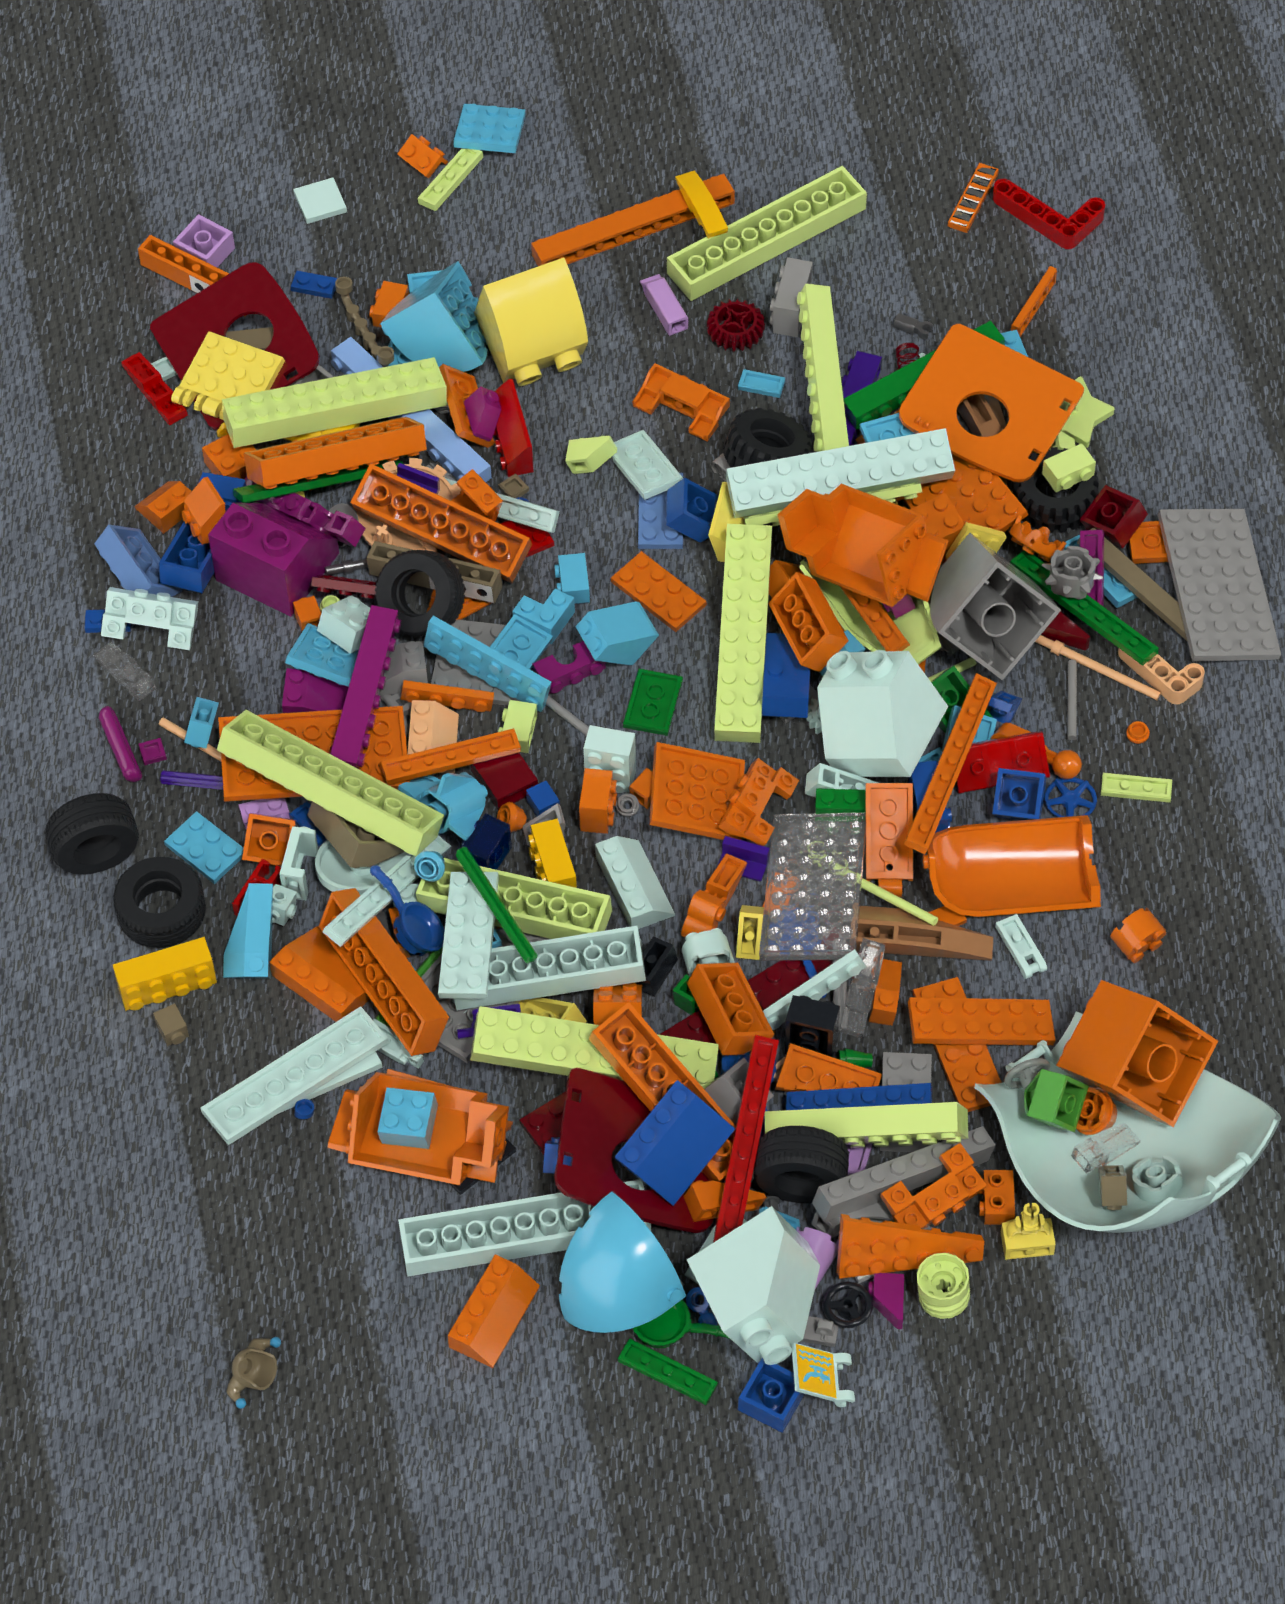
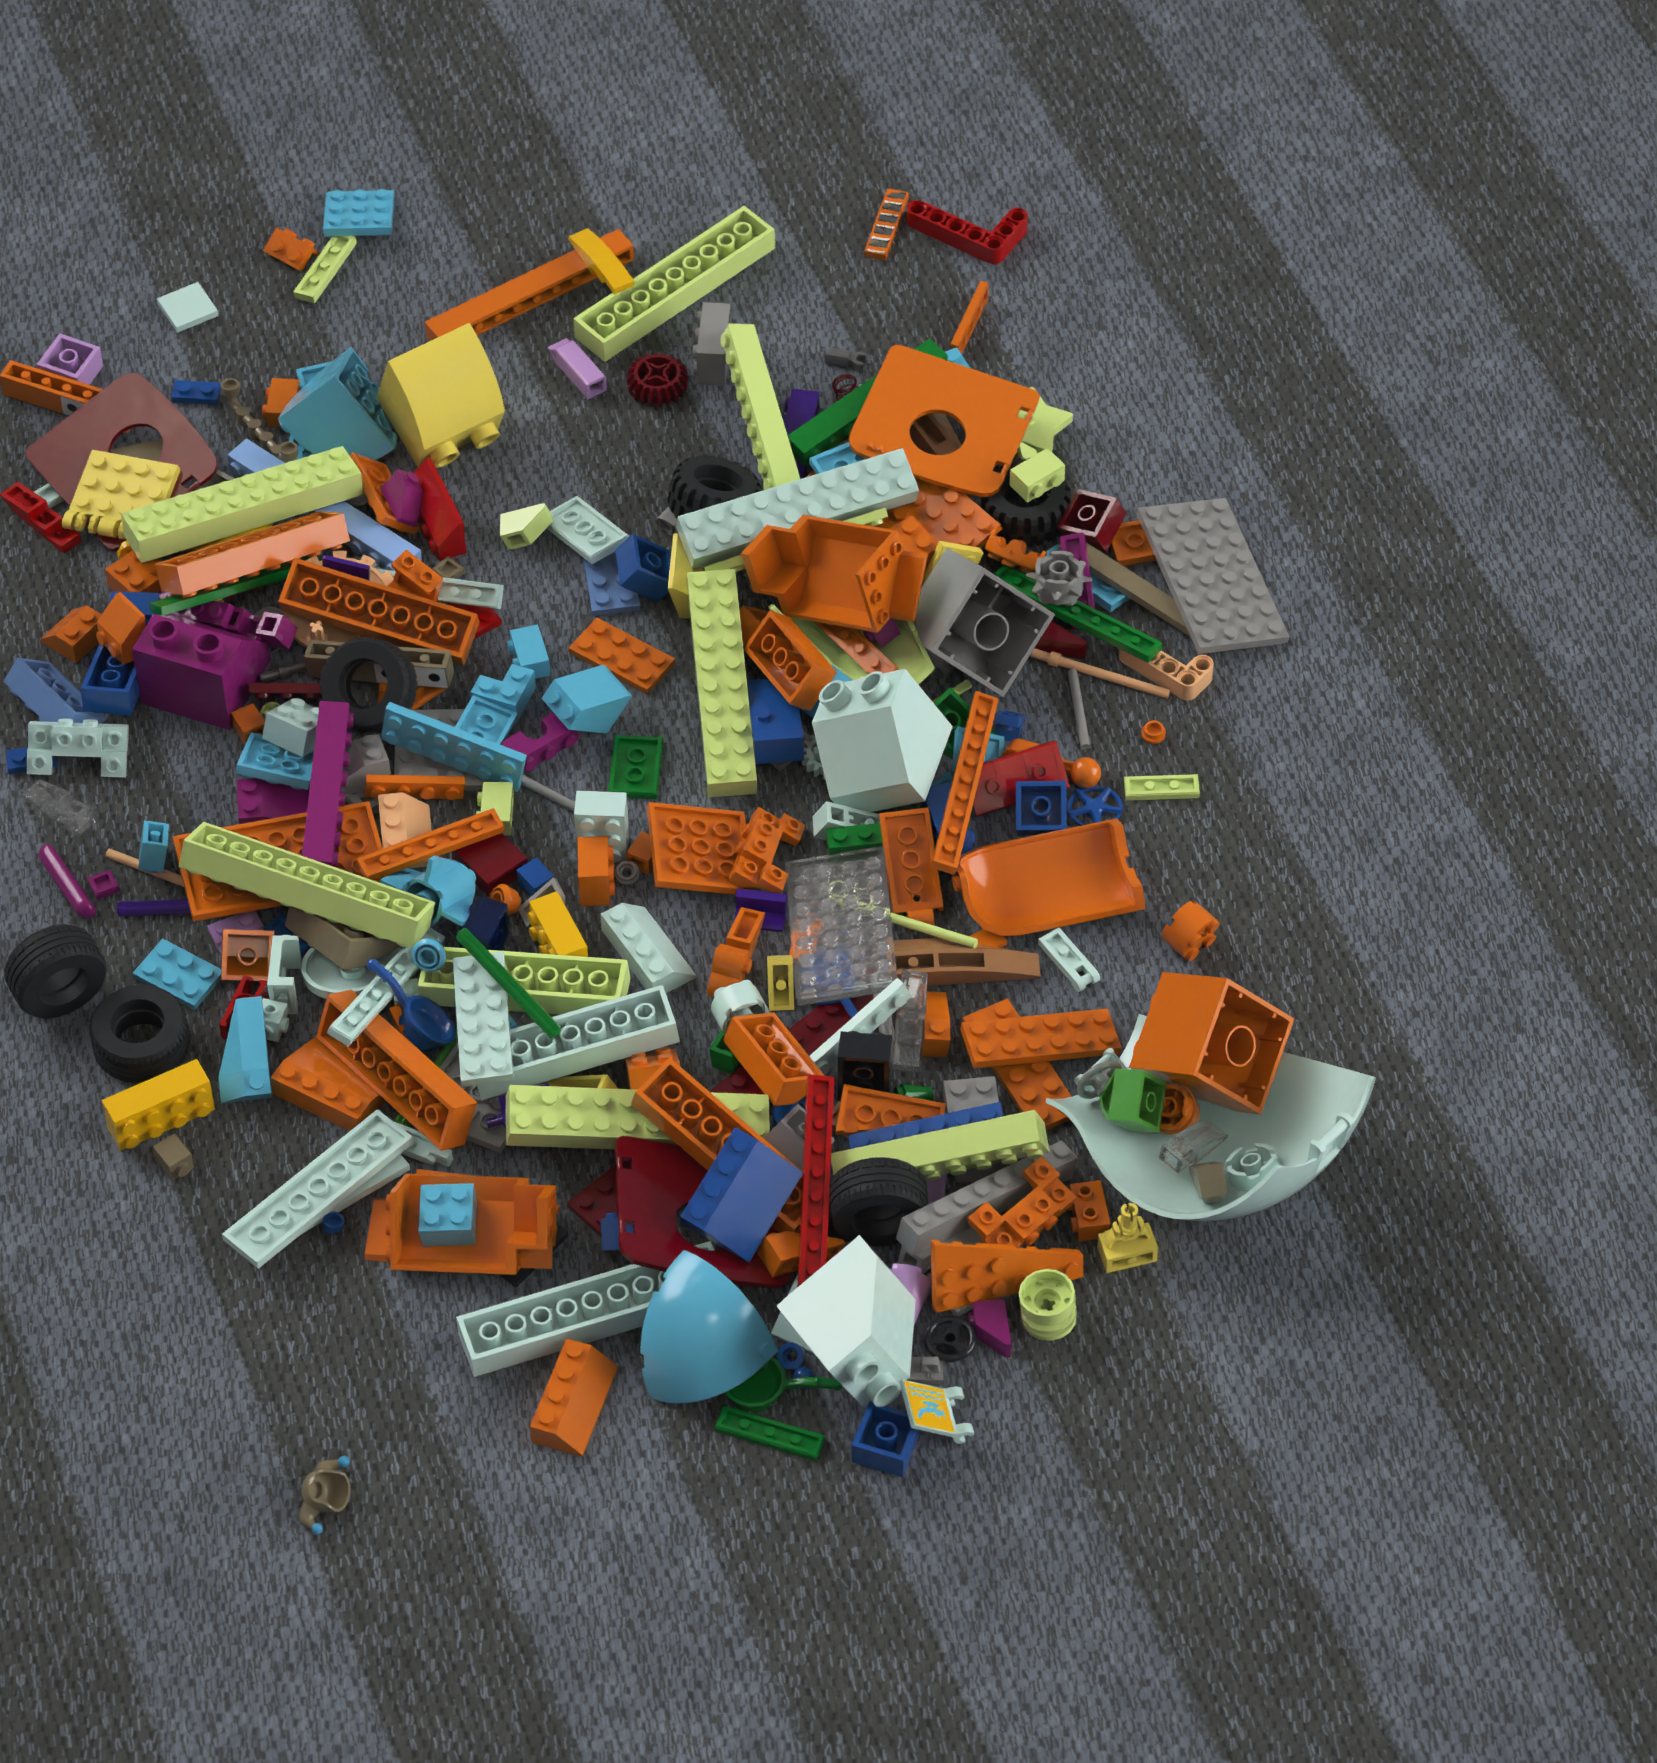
camera: 10 degrees left, 5 degrees down
(658, 961) = (690, 1023): black brick -> none
(683, 396) = (616, 457): orange bracket -> none
(761, 383) = (695, 435): medium azure tile -> none

